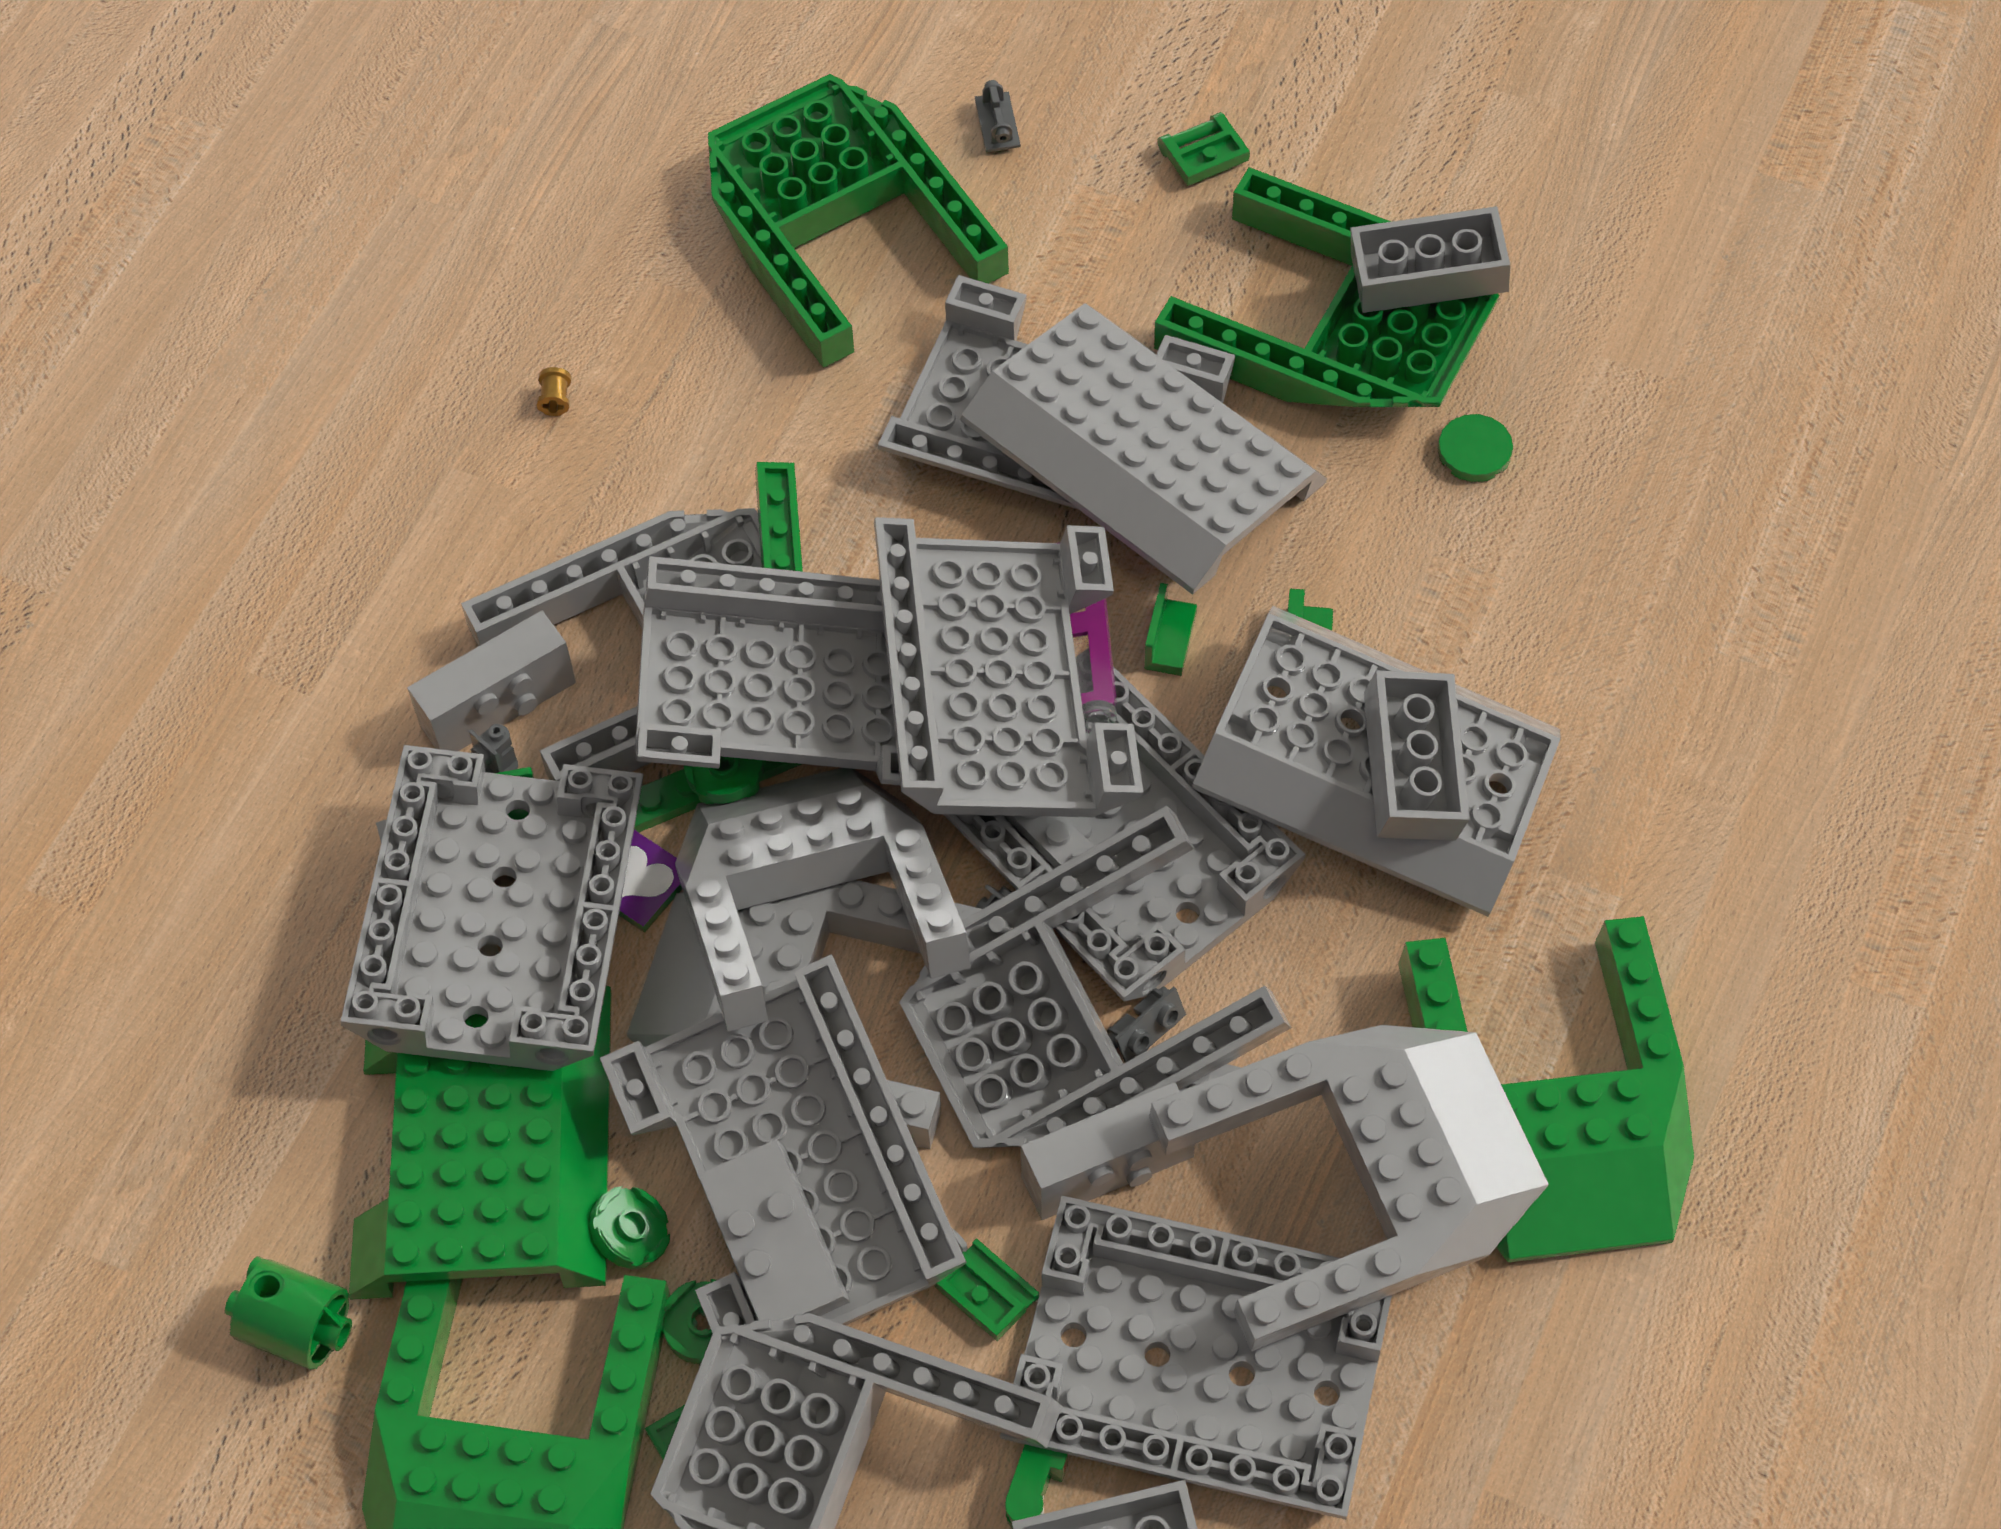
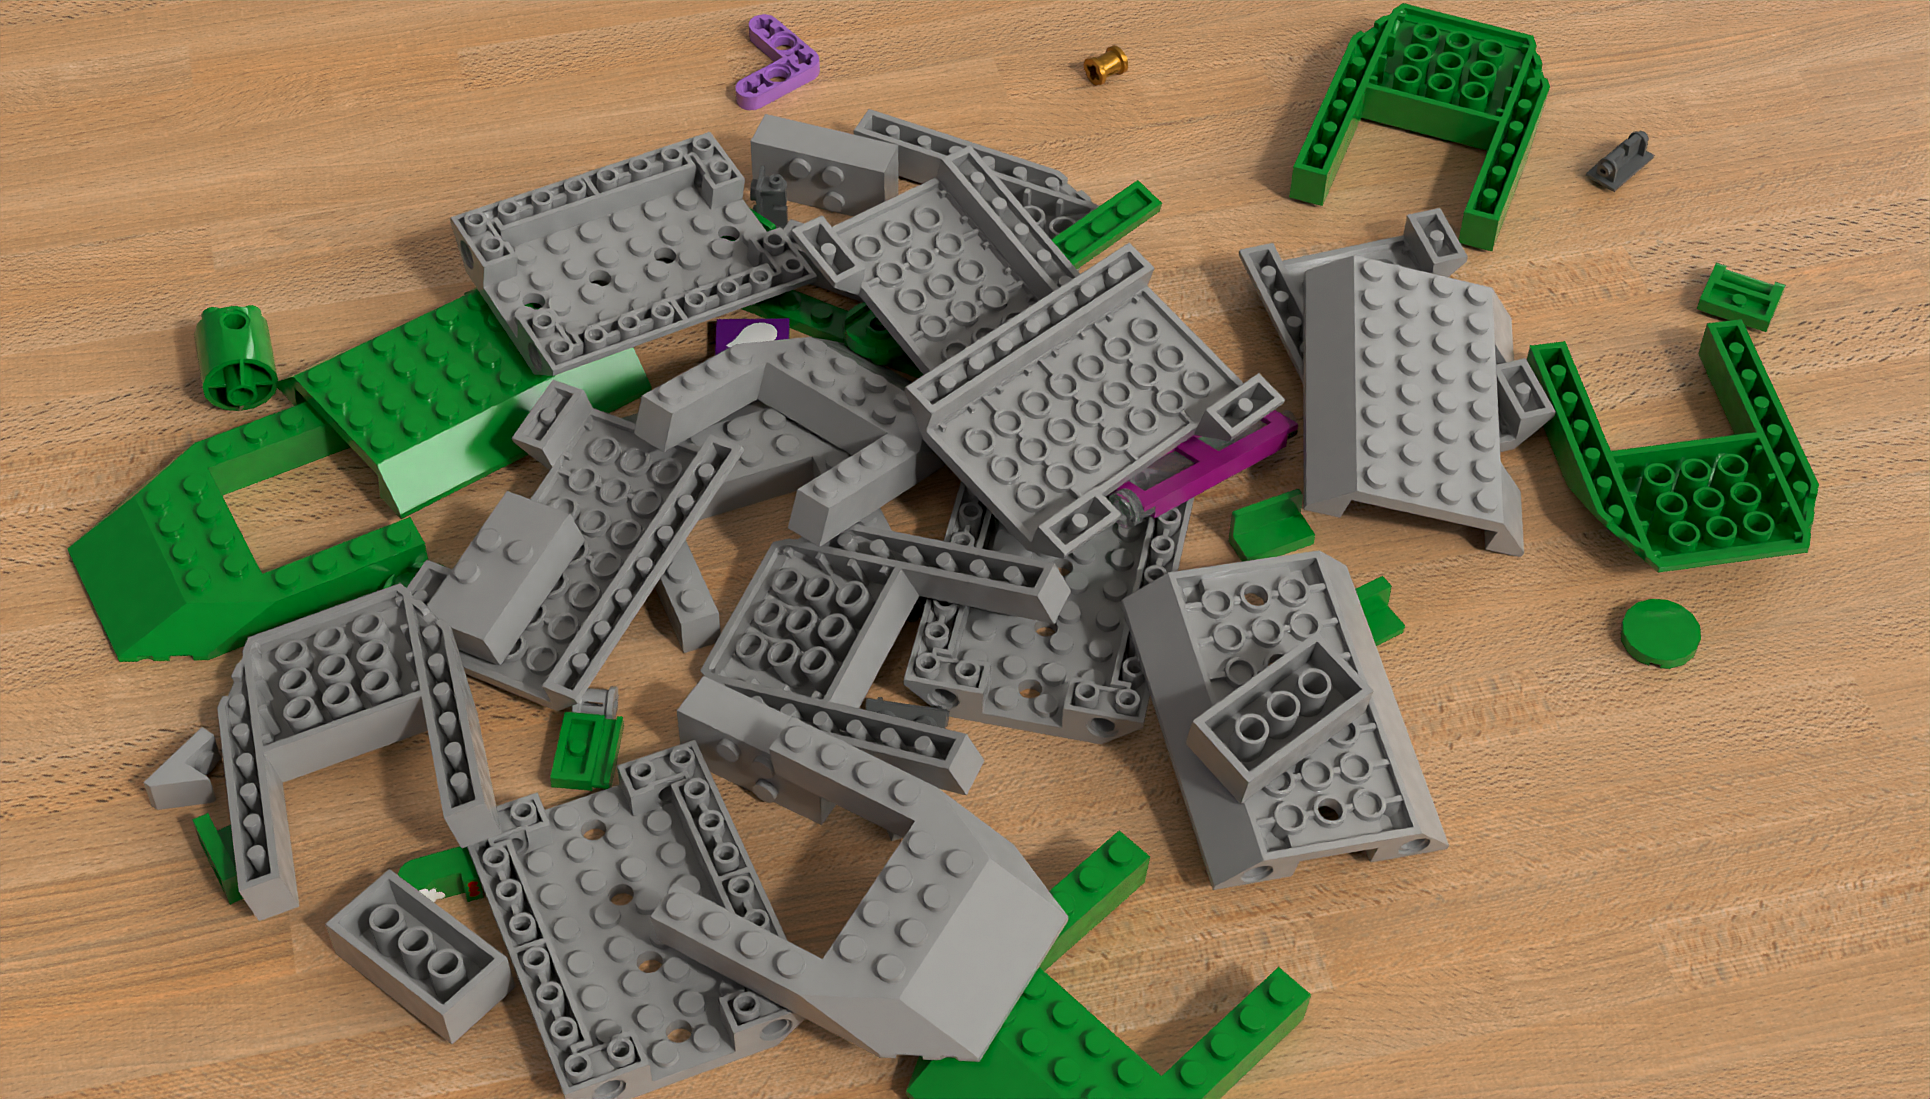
camera: 50 degrees right, 10 degrees down
(316, 633) = (757, 89): none -> medium lavender beam
(629, 1227) = (457, 503): green tile -> none
(1430, 259) = (1778, 471): light grey brick -> none

